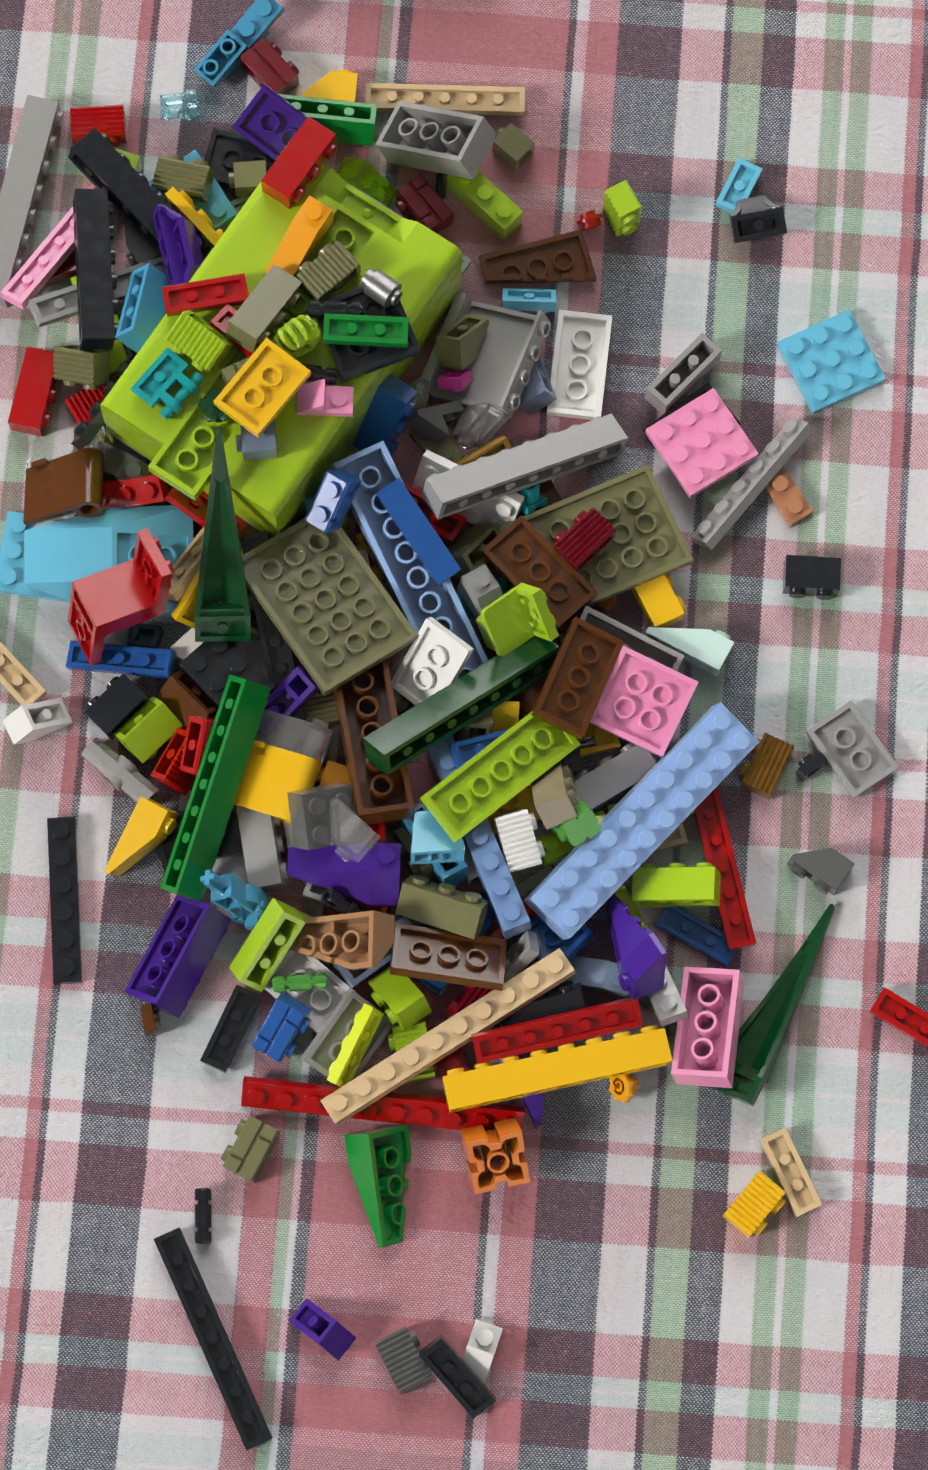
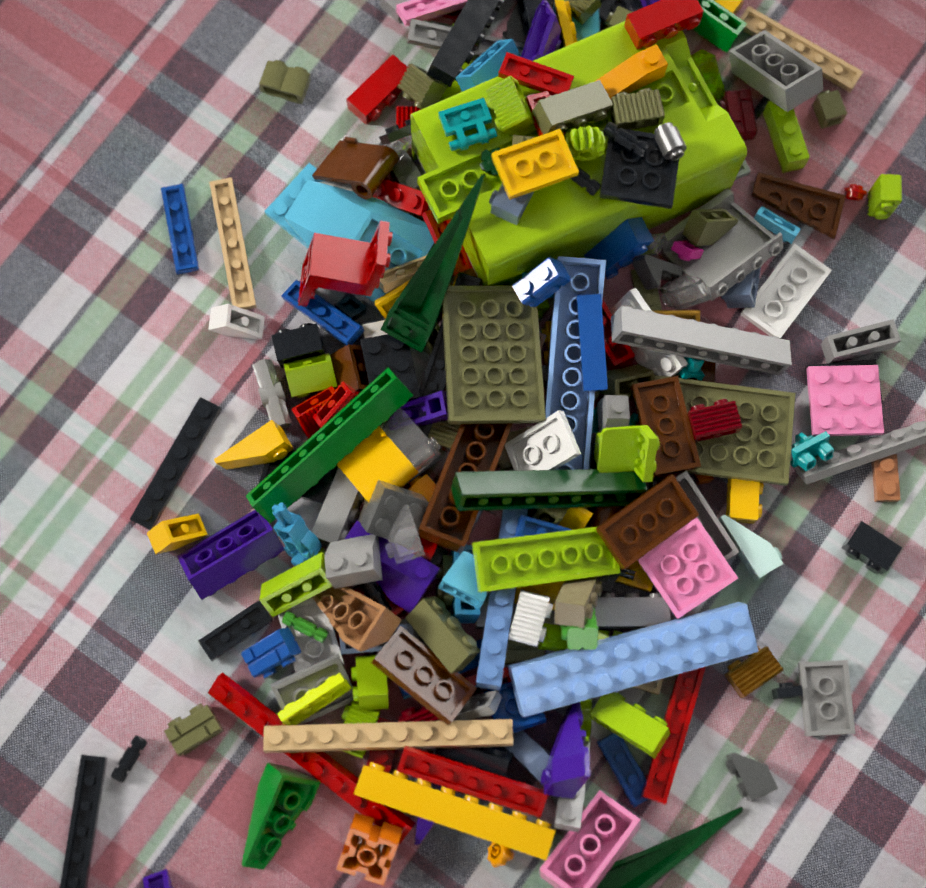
camera: 30 degrees right, 0 degrees up
(110, 968) = (176, 533): none -> yellow slope
(151, 1020) = (181, 588): reddish brown plate -> none
(312, 886) = (353, 561): none -> light grey slope
(324, 400) = (578, 203): bright pink slope -> none
(365, 330) = (639, 166): green plate -> none
(693, 511) = (809, 447): none -> teal hips

